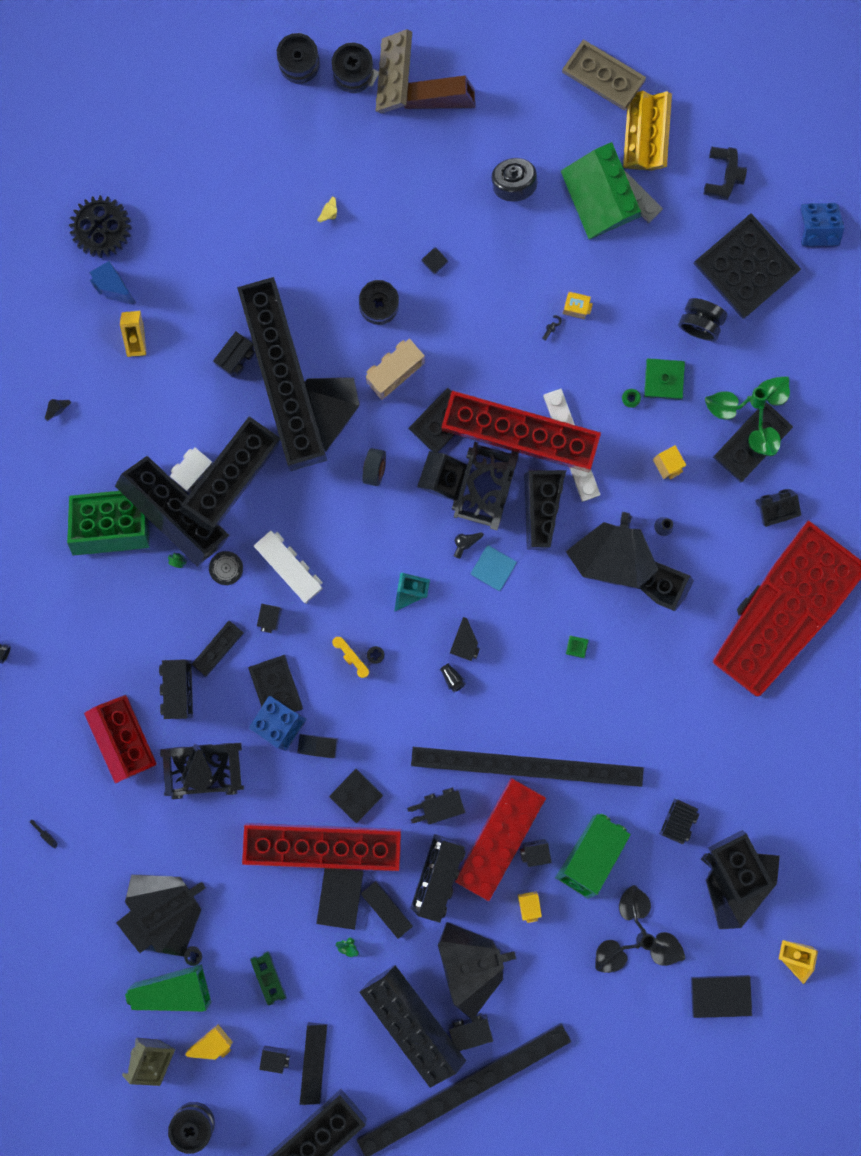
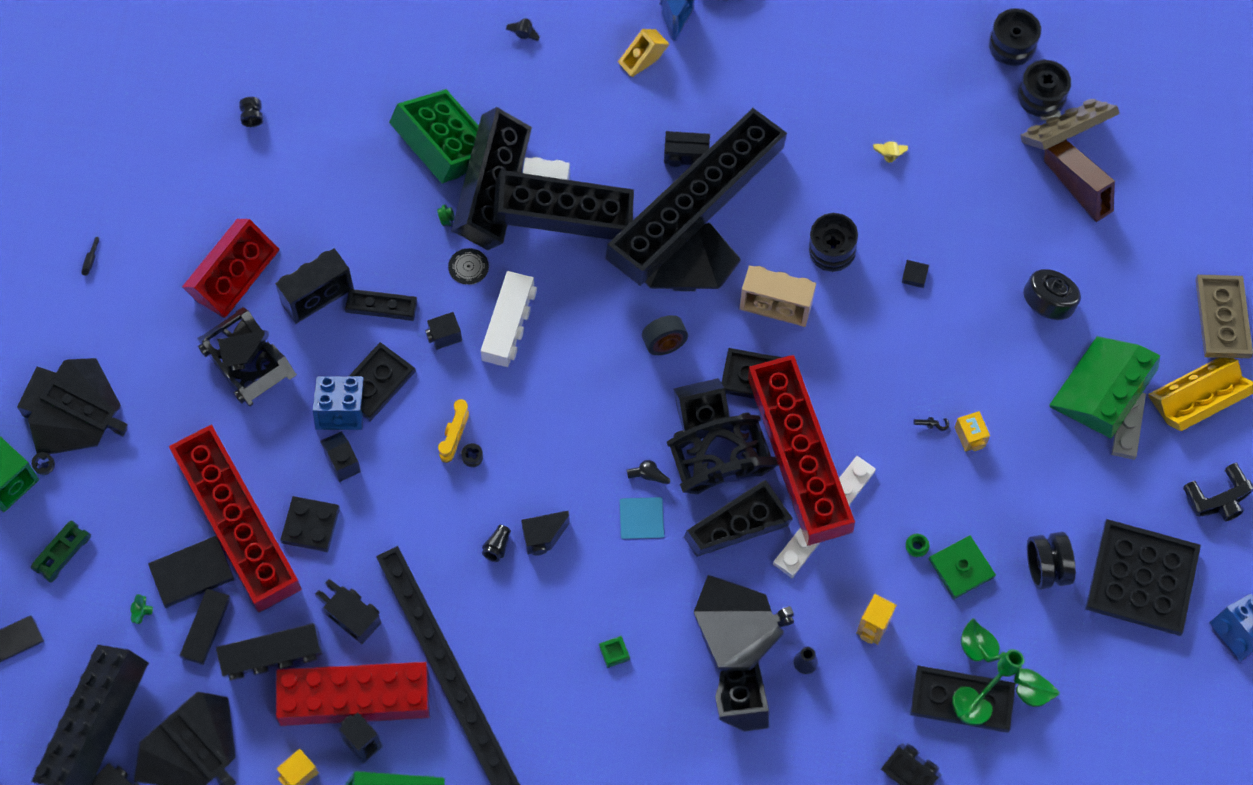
camera: 60 degrees right, 20 degrees down
(410, 590) = (561, 445): teal slope -> none

